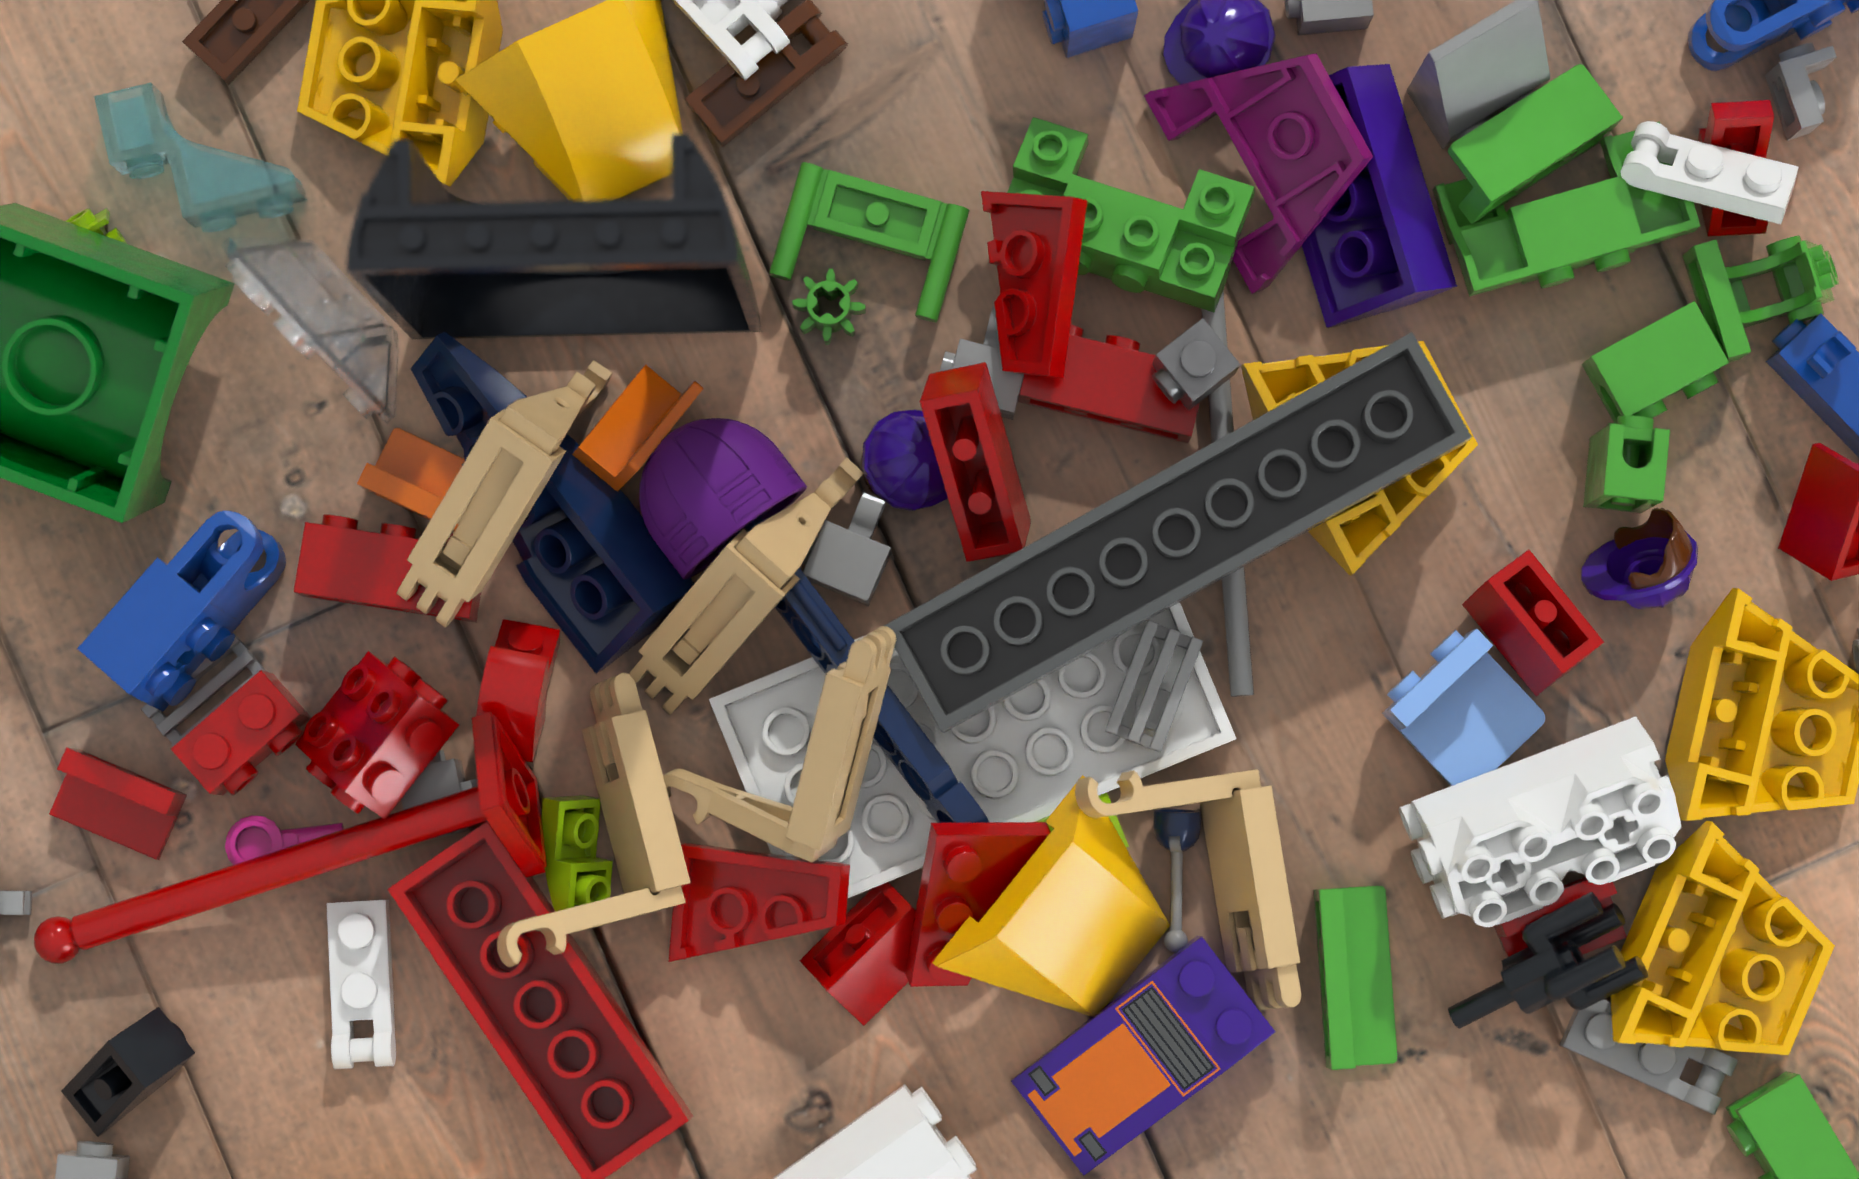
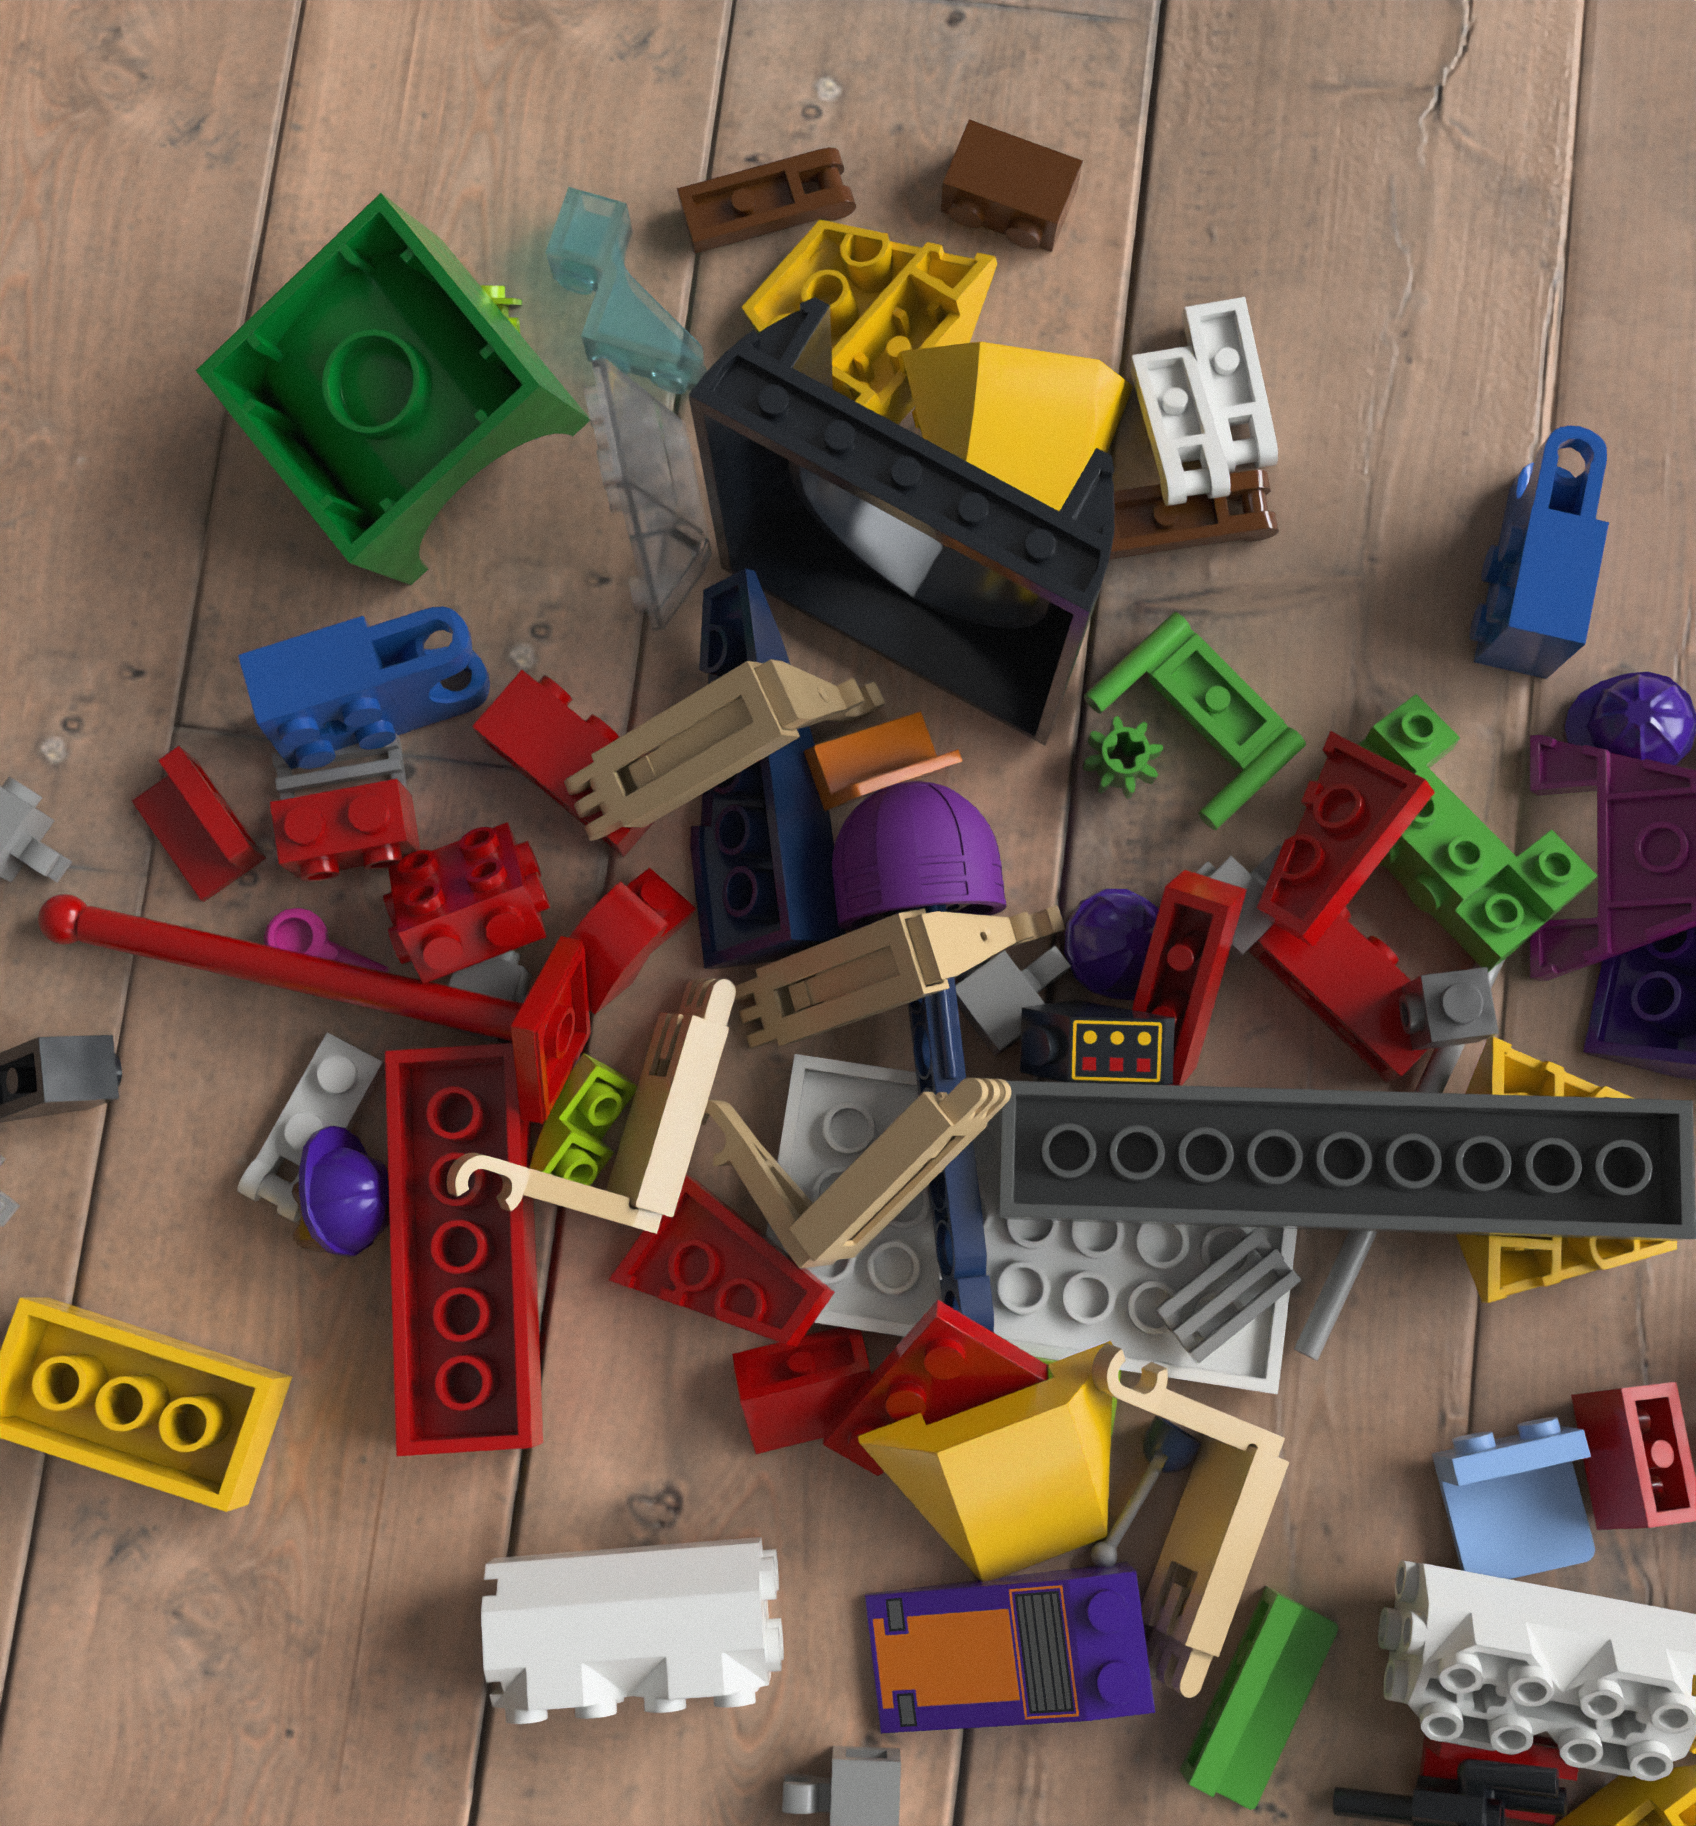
camera: 30 degrees right, 5 degrees down
(412, 473) = (642, 681): orange panel -> none
(420, 1020) = (340, 1194): none -> dark purple piece
(938, 553) = (1096, 1044): none -> black slope

